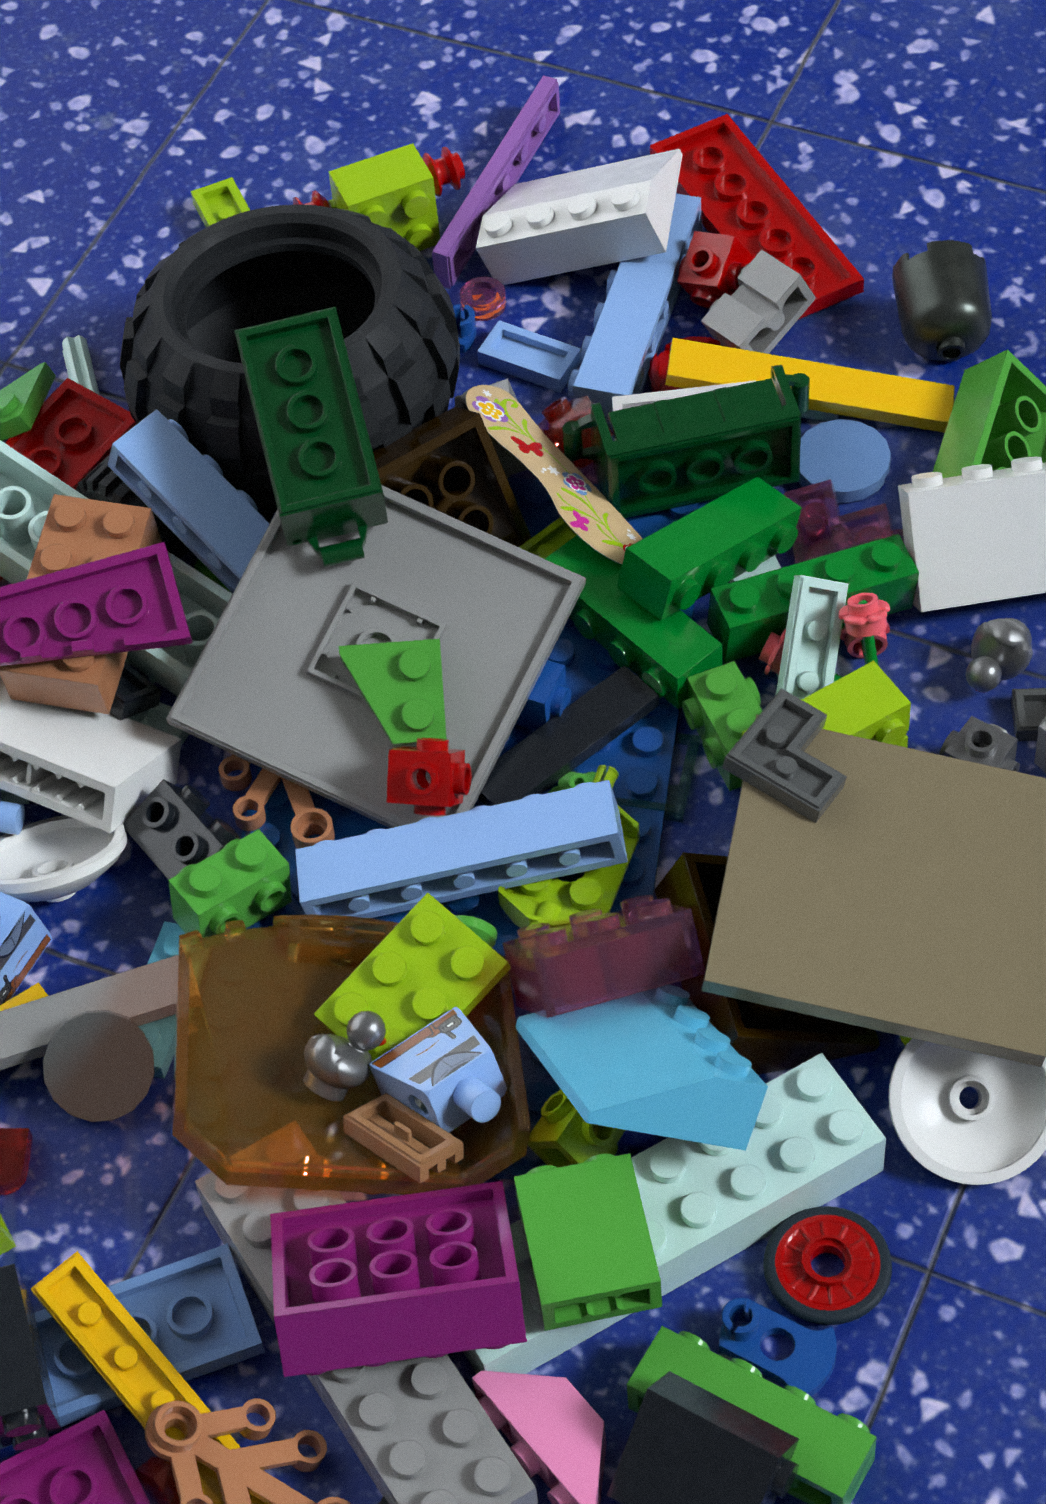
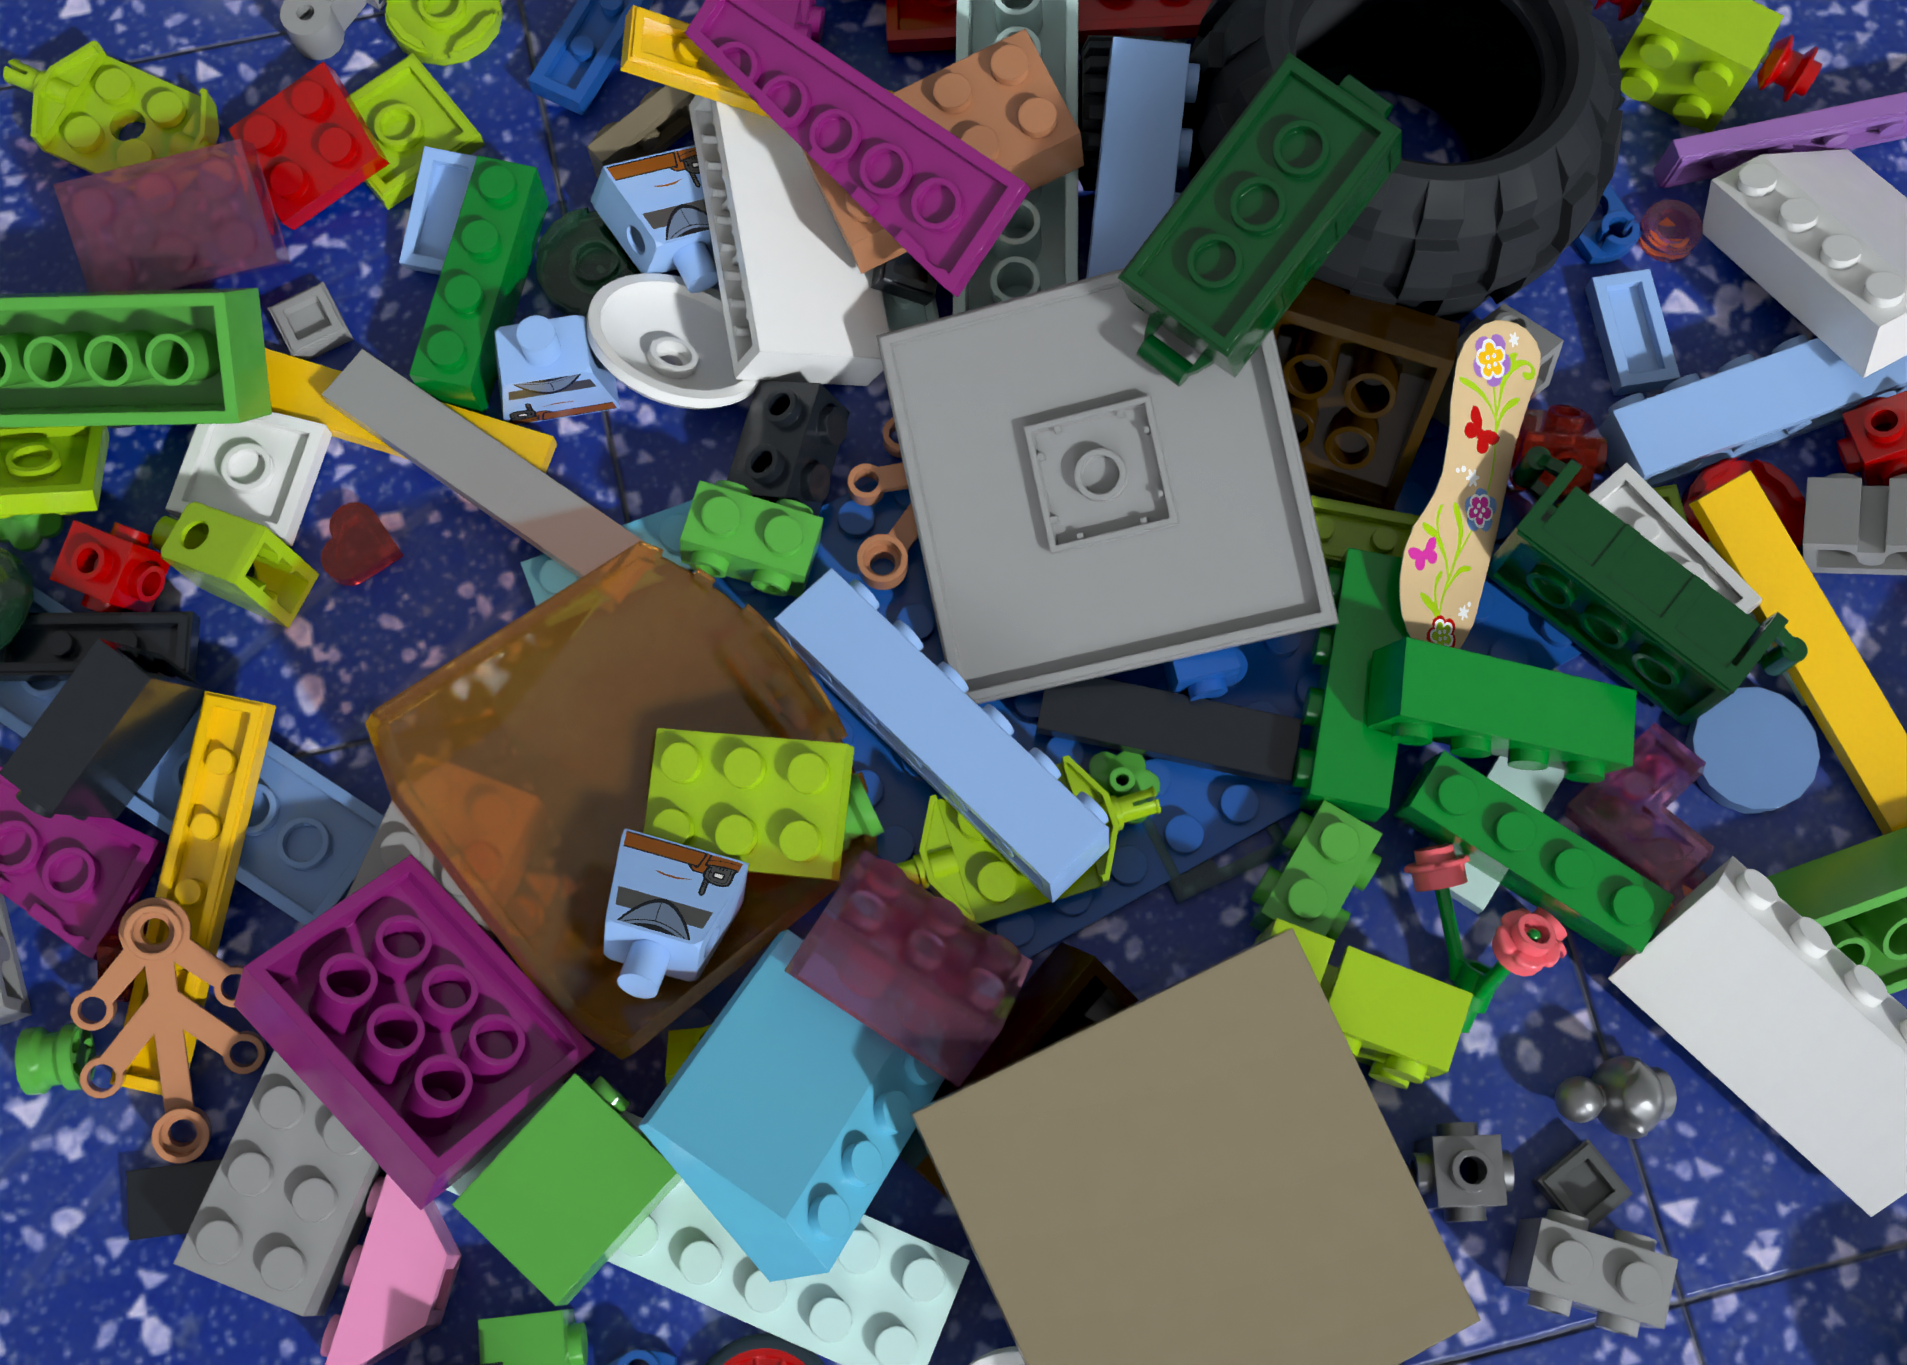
camera: 45 degrees right, 20 degrees up
(98, 1065) = (491, 563): dark grey tile -> none
(341, 1062) = (615, 795): flat silver animal -> none
(395, 1141) = (560, 971): medium nougat tile -> none
(401, 687) = (1071, 536): bright green wing -> none
(428, 776) = (994, 635): red brick -> none
(775, 761) = (1240, 990): dark grey tile -> none
(811, 635) = (1452, 904): light aqua tile -> none

